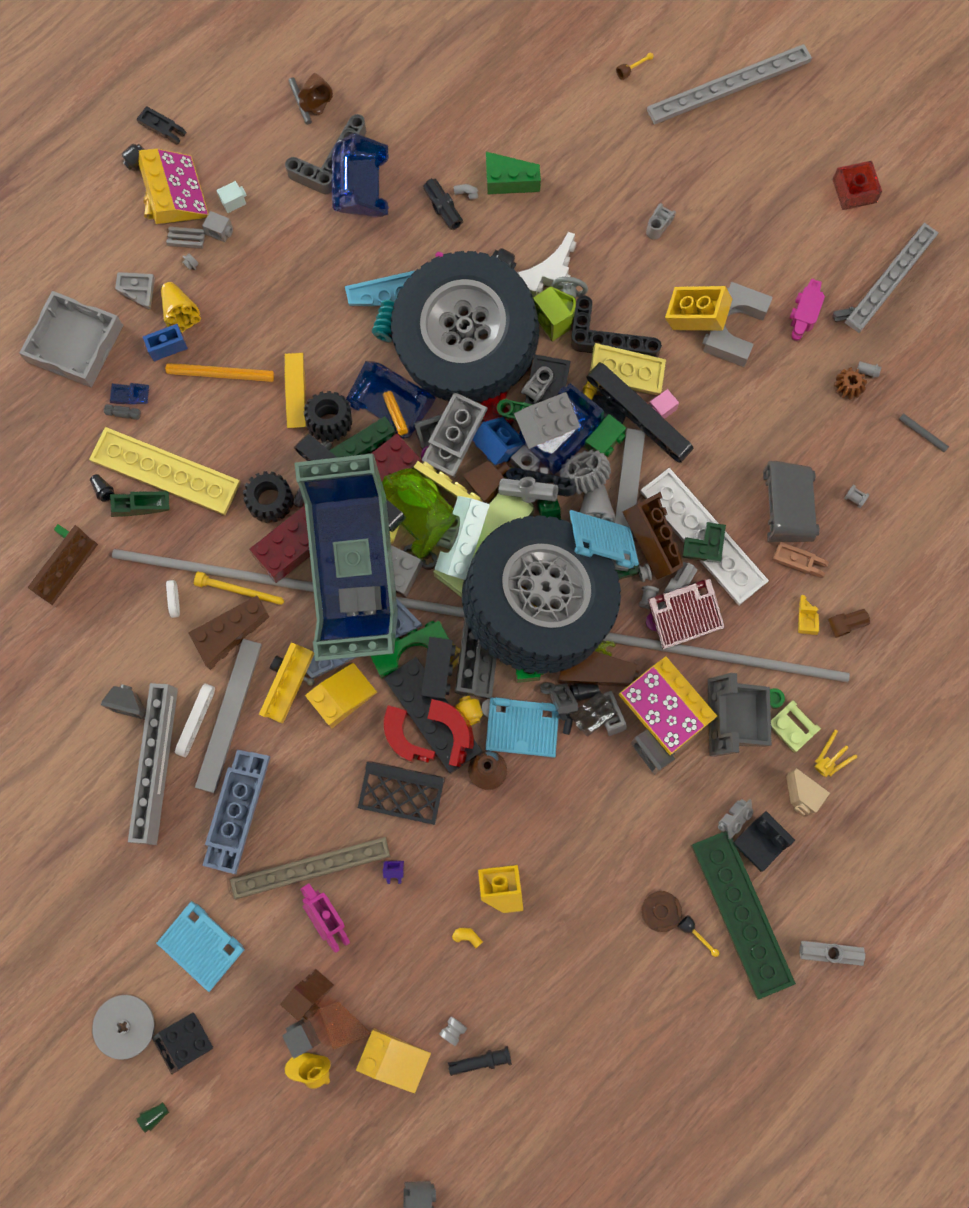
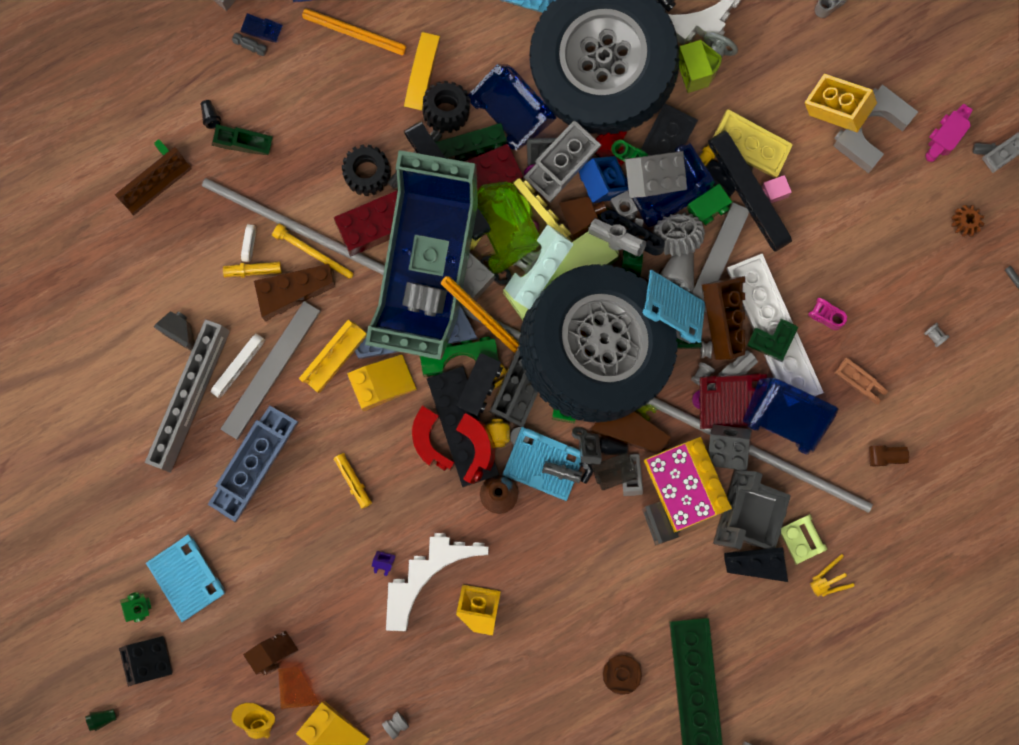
camera: 15 degrees right, 5 degrees up
(139, 1024) = (80, 630): light grey piece -> none
(163, 996) = (136, 614): none -> green brick
(165, 471) = (274, 115): light yellow plate -> none
(175, 626) = (251, 269): none -> yellow pin
(276, 663) = (329, 334): black hinge -> none
(300, 1038) = (254, 690): dark grey brick -> none
(310, 868) = (307, 536): dark tan tile -> none
(323, 917) = (306, 585): dark pink hinge -> none
(347, 806) = (356, 487): none -> yellow pin
(383, 321) = (525, 29): teal piece -> none
(395, 413) = (512, 125): light orange axle -> none
(406, 775) = (418, 475): black fence -> none
(418, 599) = (480, 313): none -> light orange axle
(423, 897) = (402, 594): none -> white arch
(467, 934) = (433, 641): yellow arm -> none
(537, 385) = (658, 135): light grey piece -> none
(543, 730) = (562, 472): none -> dark grey pin
(607, 338) = (742, 106): black beam -> none
(688, 925) = (642, 695): hinge -> none
(697, 658) = (730, 447): none -> dark grey brick
(741, 813) = (726, 604): light grey hinge -> none
(744, 608) = (789, 413): none -> clear blue windscreen
(748, 506) = (827, 313): none -> dark pink piece
(759, 762) = (758, 563): none -> black wing
(763, 841) = (738, 639): black bracket -> none
(776, 698) = (794, 507): green tile -> none
(791, 502) = (869, 322): dark grey windscreen -> none
(805, 793) = (791, 606): tan slope -> none
(808, 617) = (850, 439): yellow slope -> none
(869, 369) = (991, 212): light grey pin -> none

